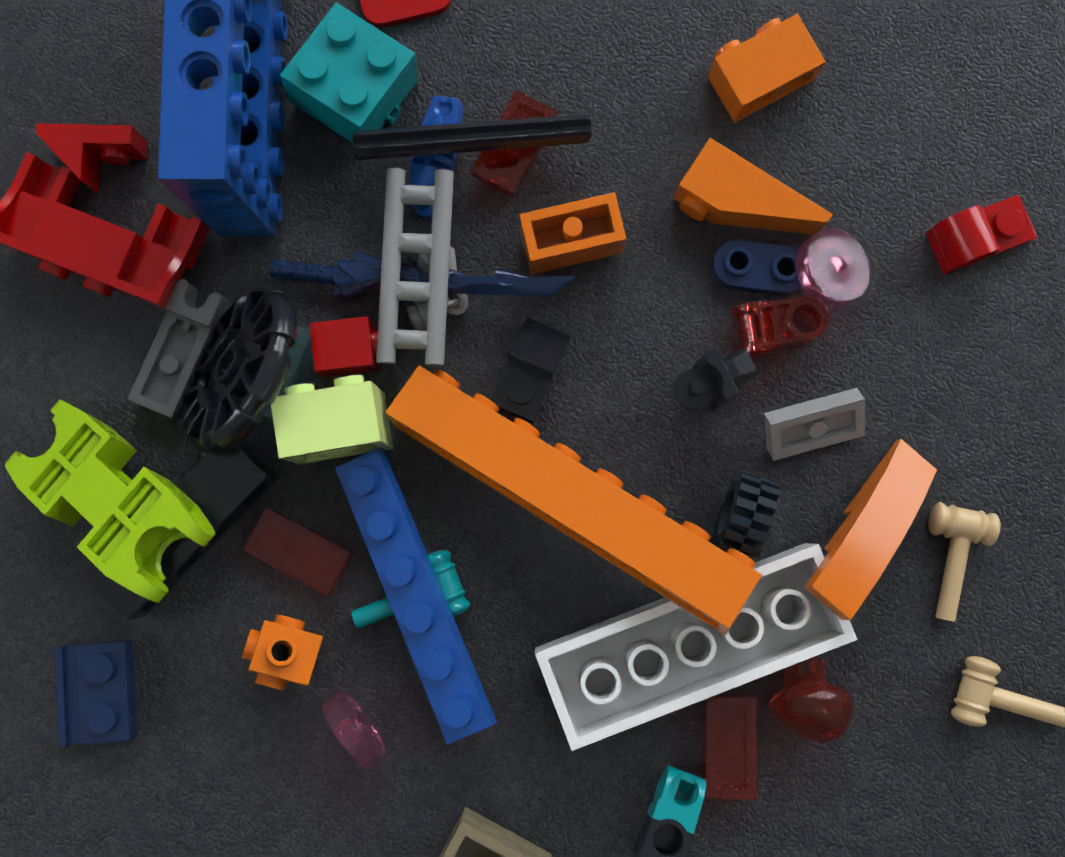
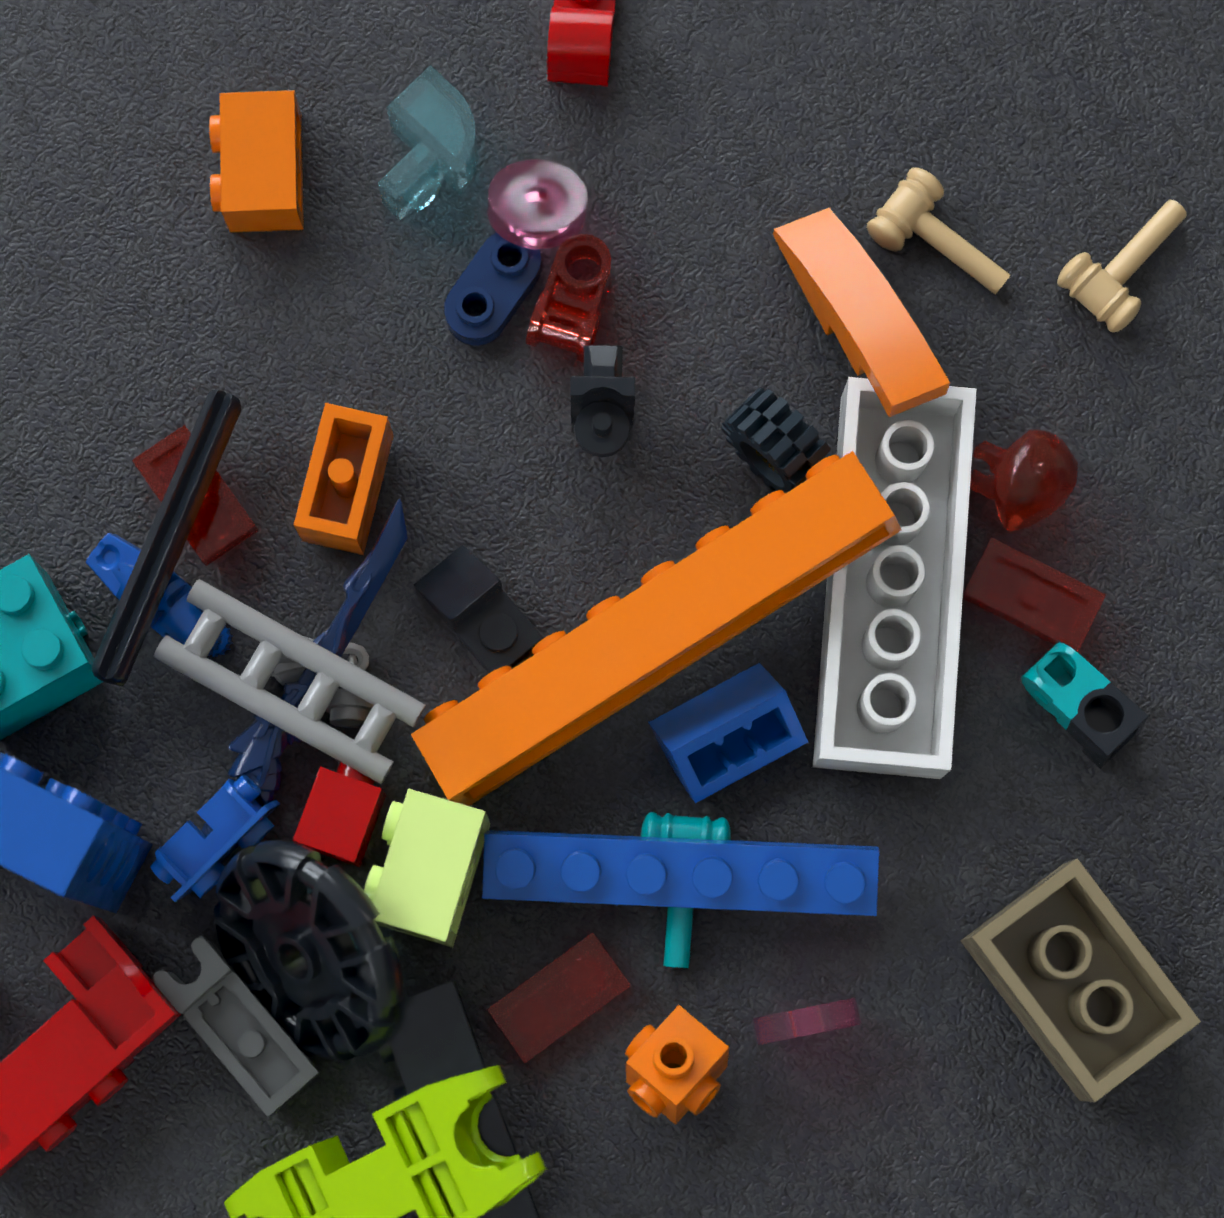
camera: 70 degrees left, 5 degrees down
(308, 280) = (235, 822): none -> blue hinge
(529, 579) = (728, 732): none -> blue brick
(739, 194) = (392, 268): orange slope -> none
(815, 424) = (709, 315): light grey plate -> none
(846, 180) = (443, 141): none -> clear light blue brick

